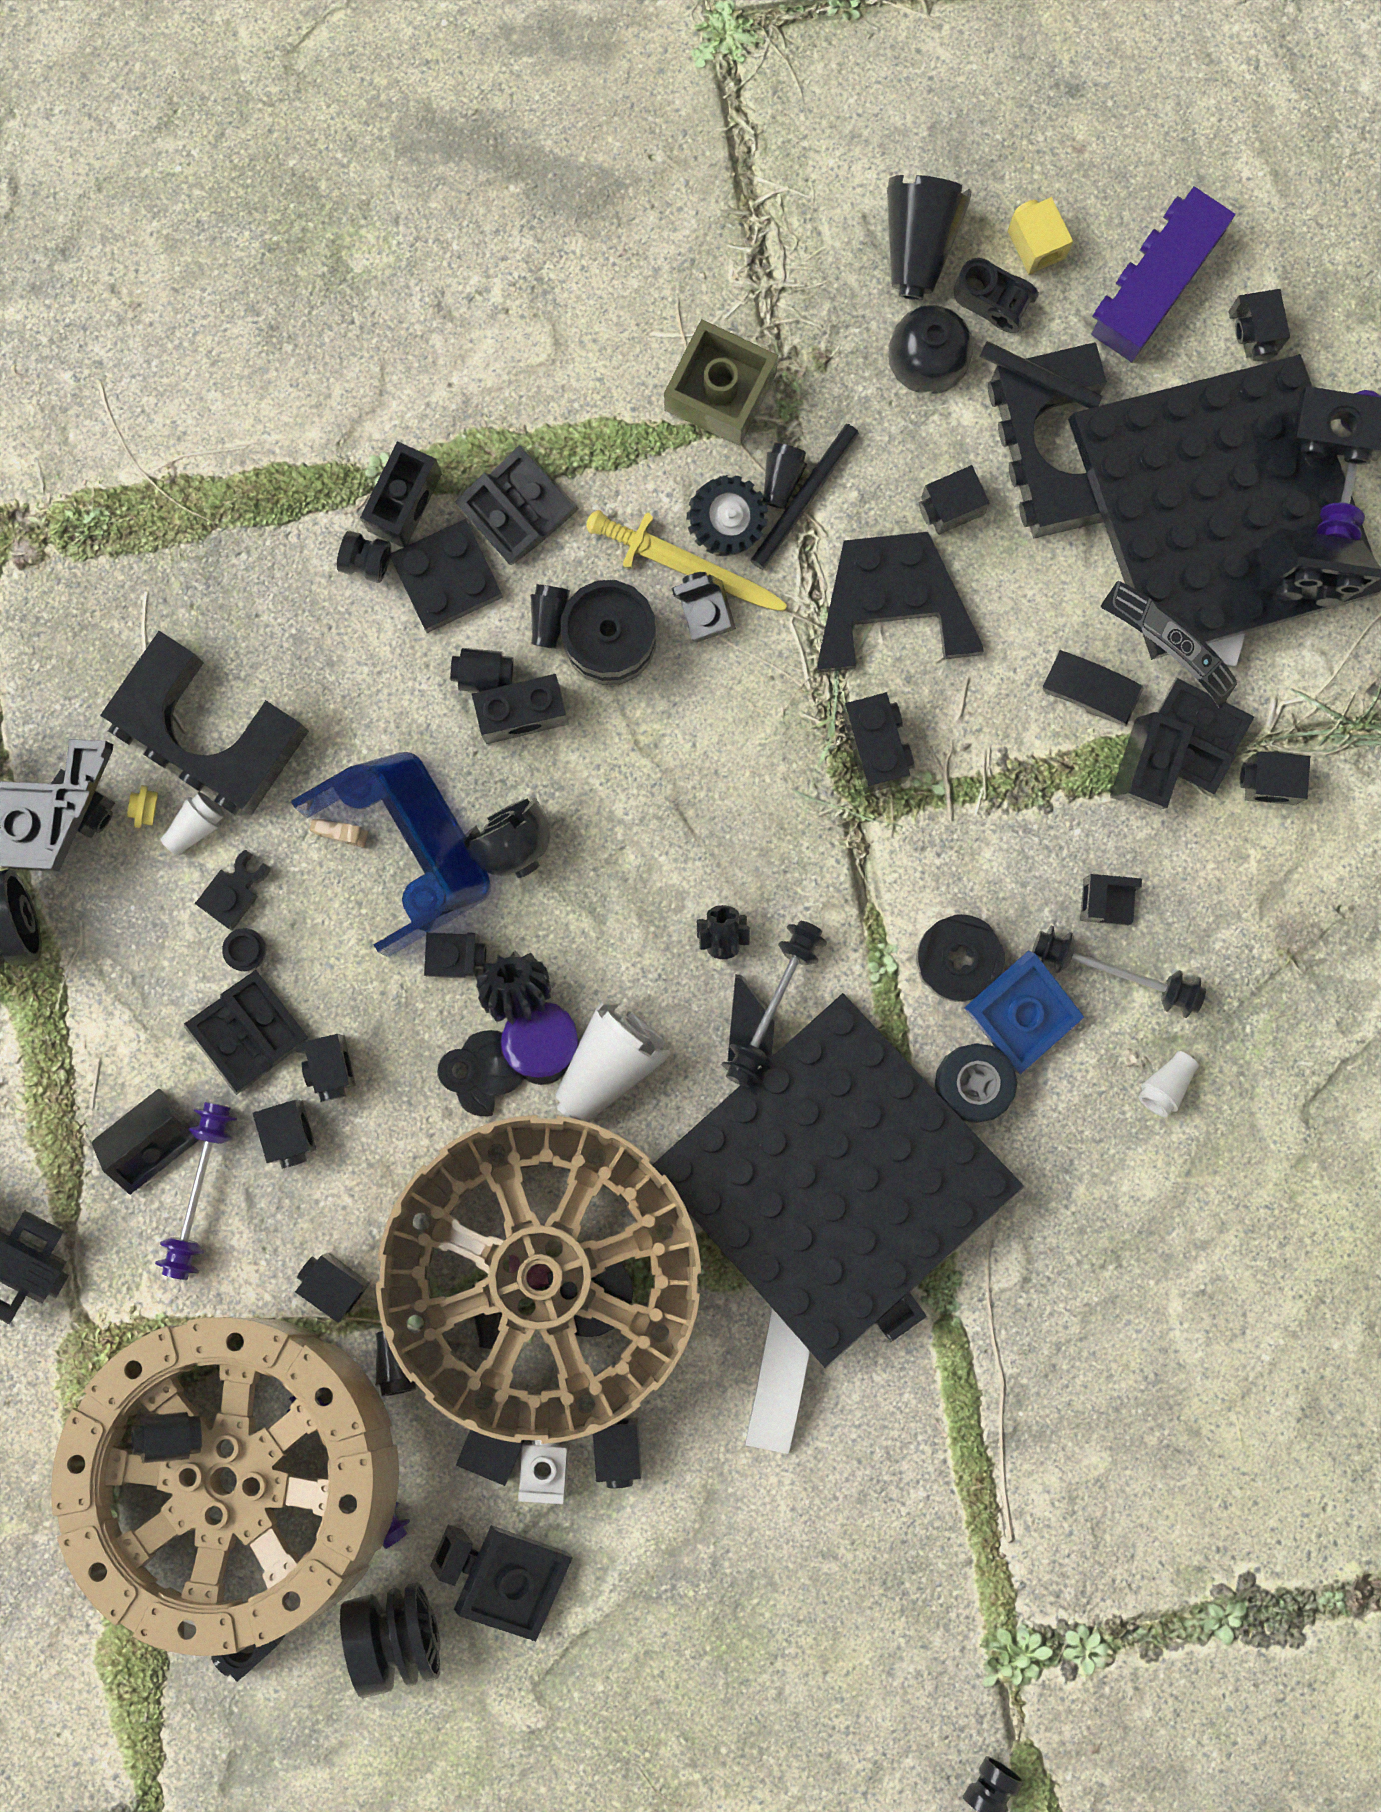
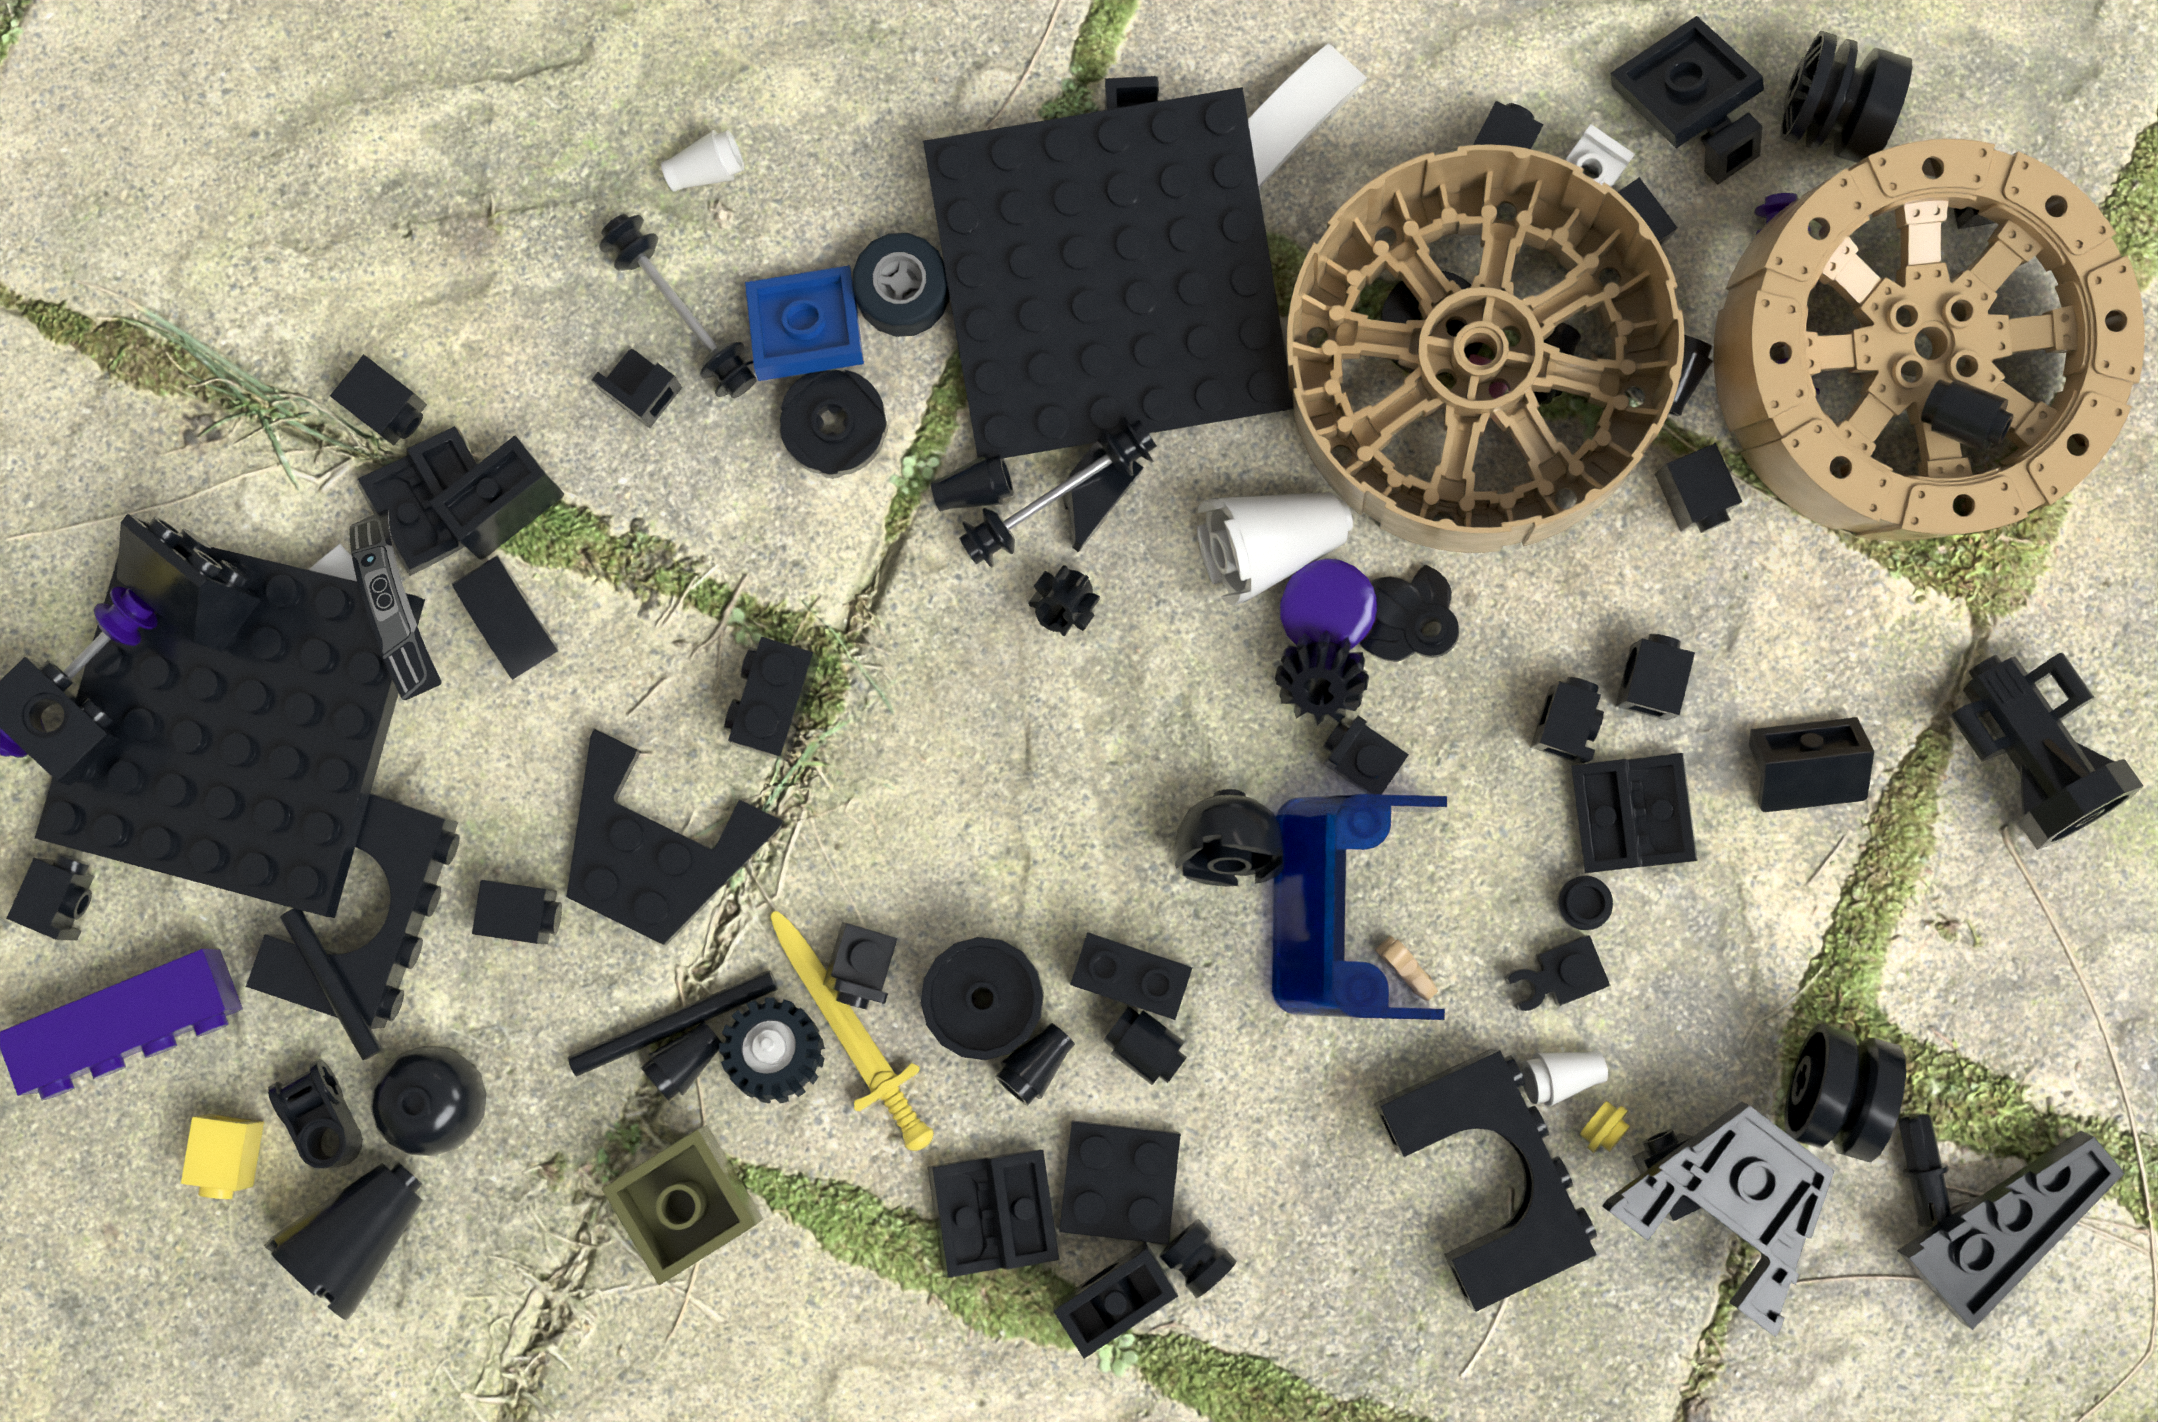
camera: 150 degrees left, 0 degrees up
(182, 1250) = (1834, 624): dark purple axle -> none
(835, 975) = (974, 484): none -> black cone

